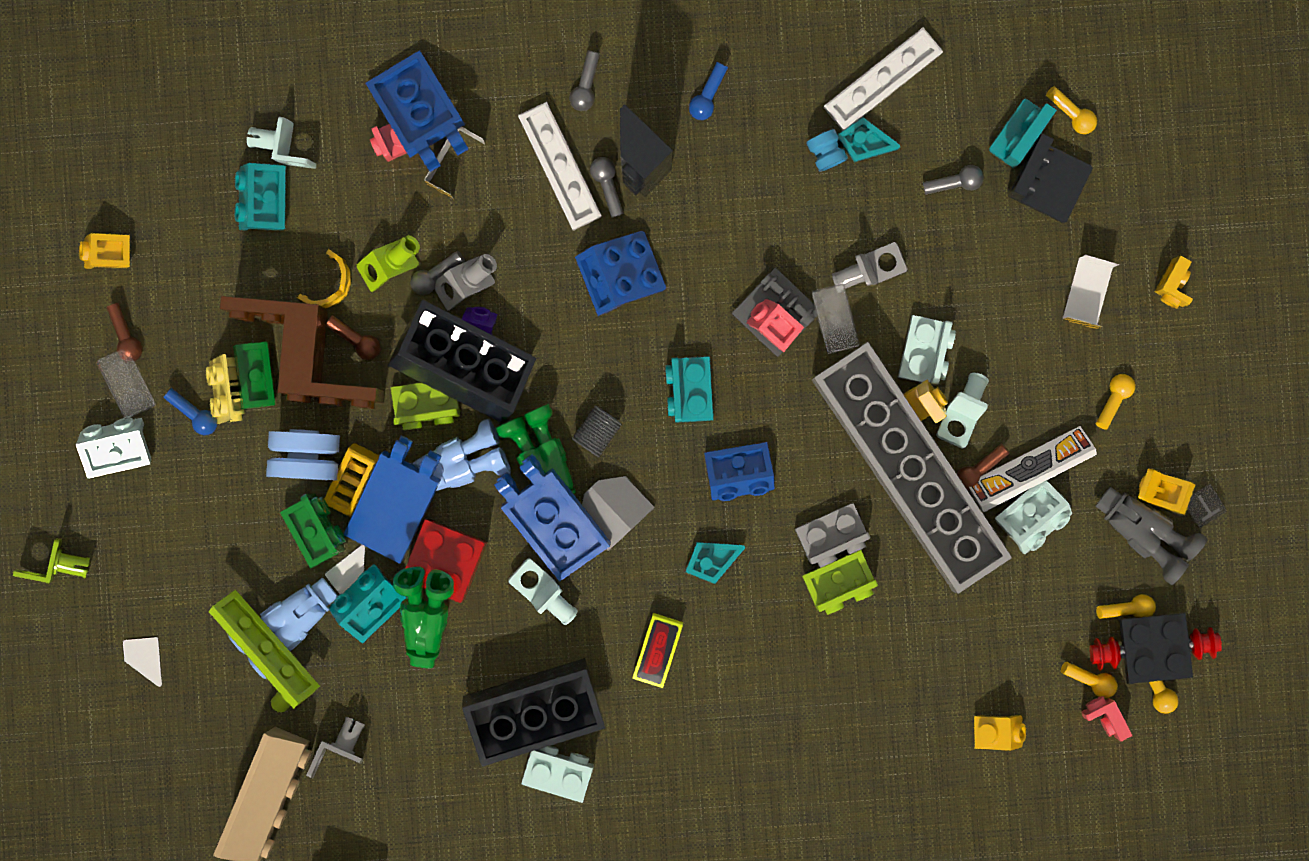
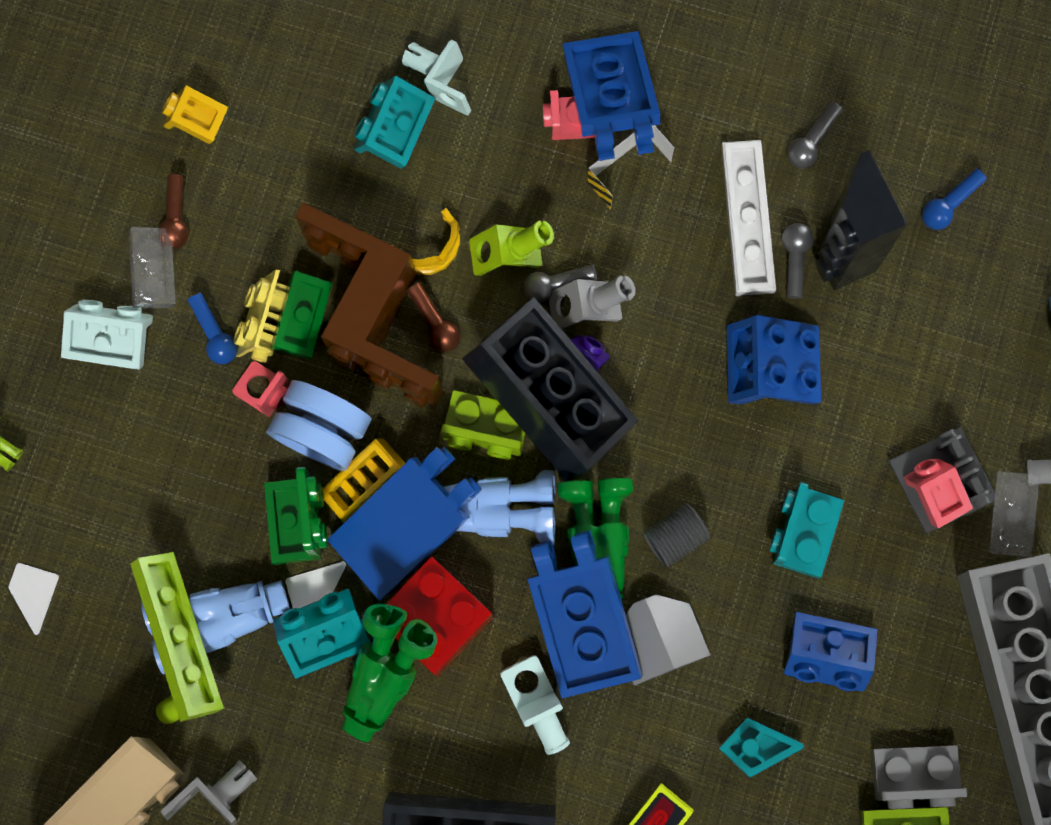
camera: 25 degrees right, 10 degrees down
(260, 441) = (273, 394): none -> coral bracket

